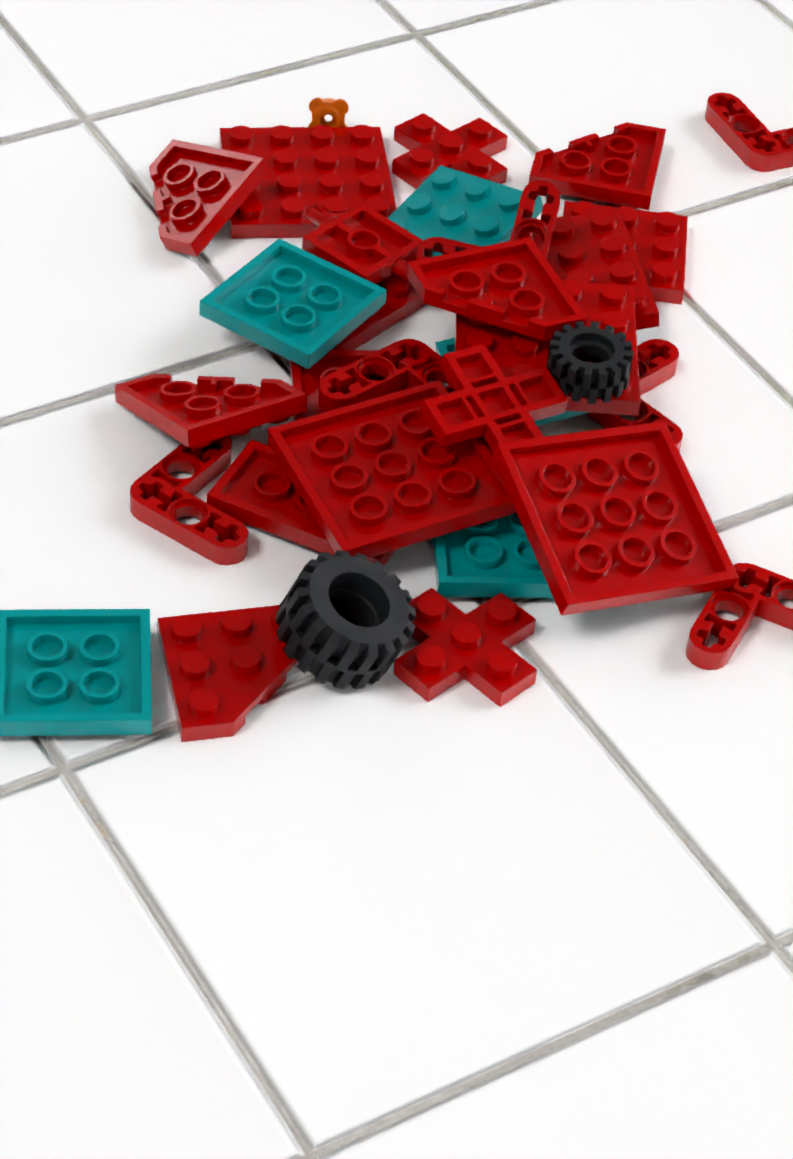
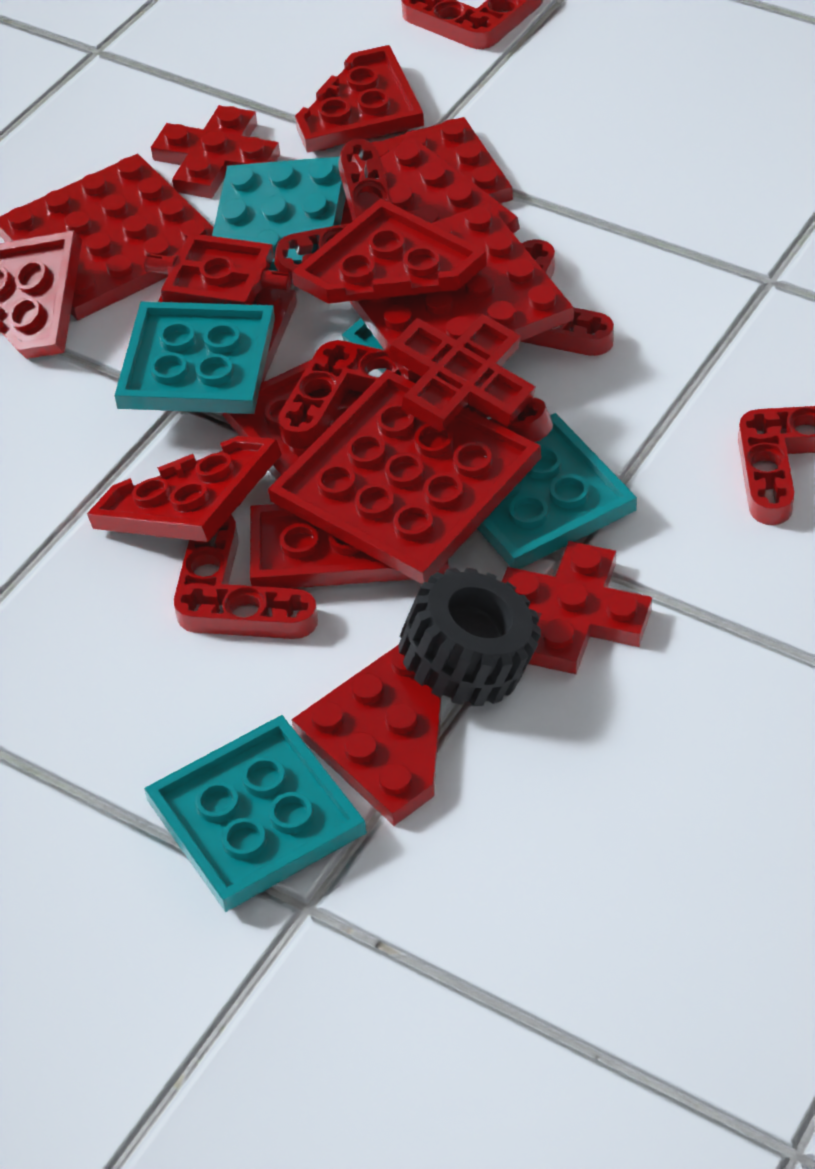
camera: 20 degrees left, 5 degrees up
(328, 106) = (79, 155): orange plate -> none
(610, 359) = (516, 273): black tyre -> none
(613, 517) = (627, 424): red plate -> none

